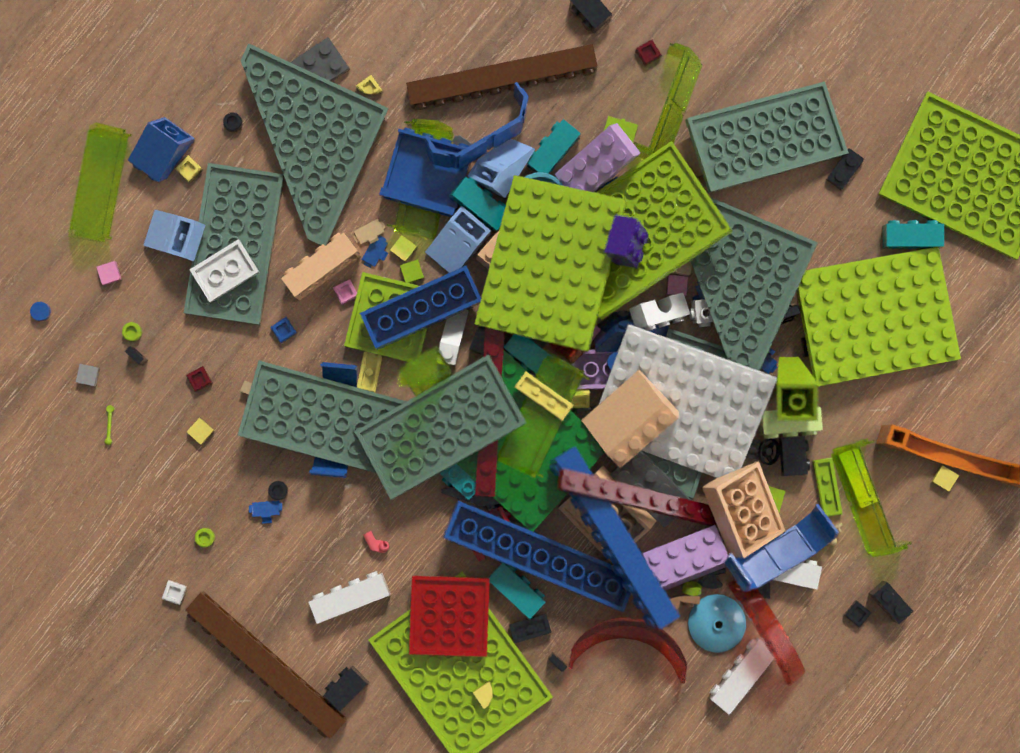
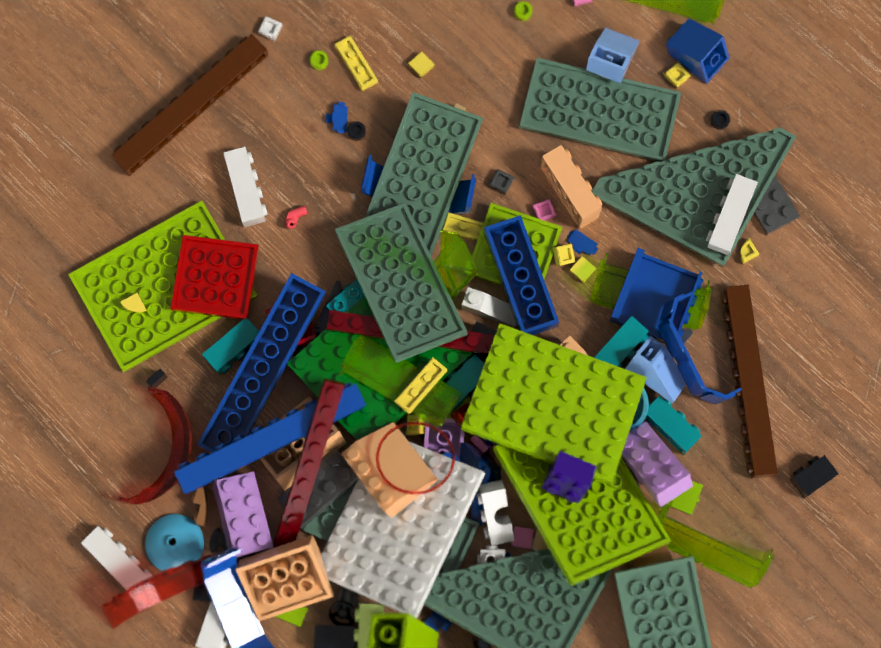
camera: 90 degrees right, 10 degrees down
(136, 355) = (499, 11): black tile -> none
(199, 379) = (471, 68): dark red tile -> none
(204, 498) = (356, 63): none -> light yellow tile
(224, 271) = (574, 97): white plate -> none
(283, 330) = (512, 149): blue tile -> none
(318, 337) = (501, 181): none -> dark grey tile
(336, 102) = (732, 214): none -> white brick
(346, 688) = (158, 175): black brick -> none
(369, 232) = (602, 239): tan piece -> none
(390, 268) = (563, 254): none -> light yellow tile
(412, 271) = (559, 276): lime tile -> none
(458, 240) = (586, 322): light blue slope -> none
(530, 628) = (193, 356): black plate -> none
(648, 52) = (766, 533): dark red tile -> none
(657, 393) = (412, 492): none -> clear red piece
(692, 588) = (212, 520): lime tile -> none

